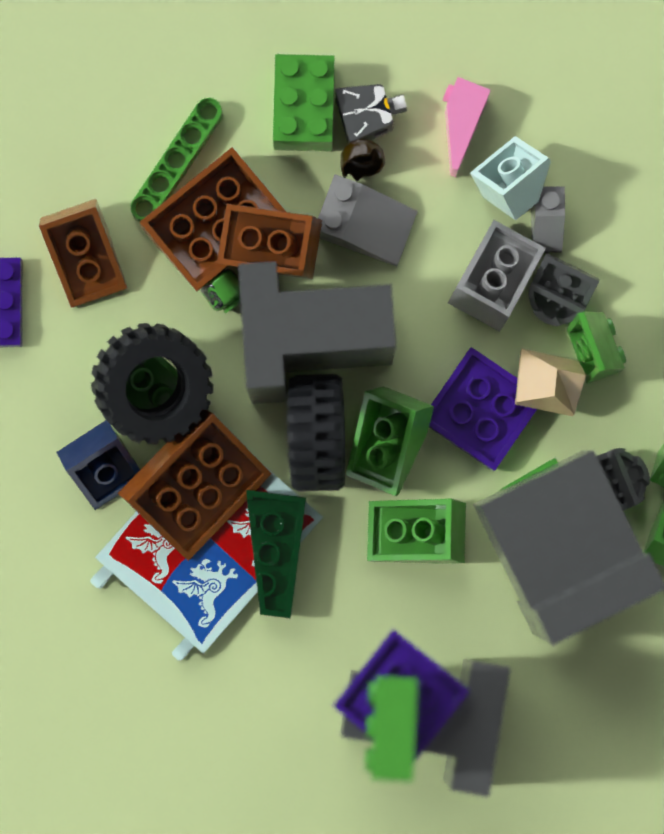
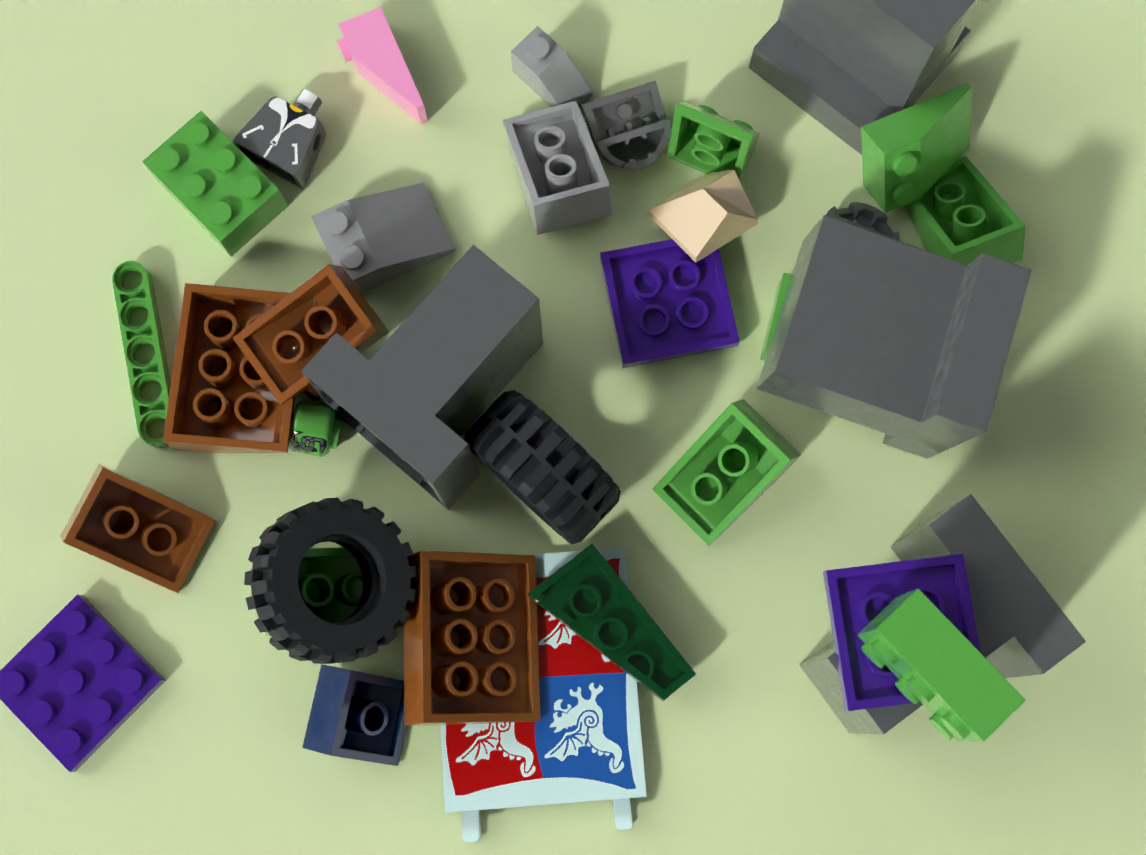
camera: 45 degrees left, 5 degrees down
(362, 159) = (323, 181): dark brown hair -> none
(388, 438) = (612, 409): bright green slope -> none
(512, 177) = (482, 62): light aqua slope -> none

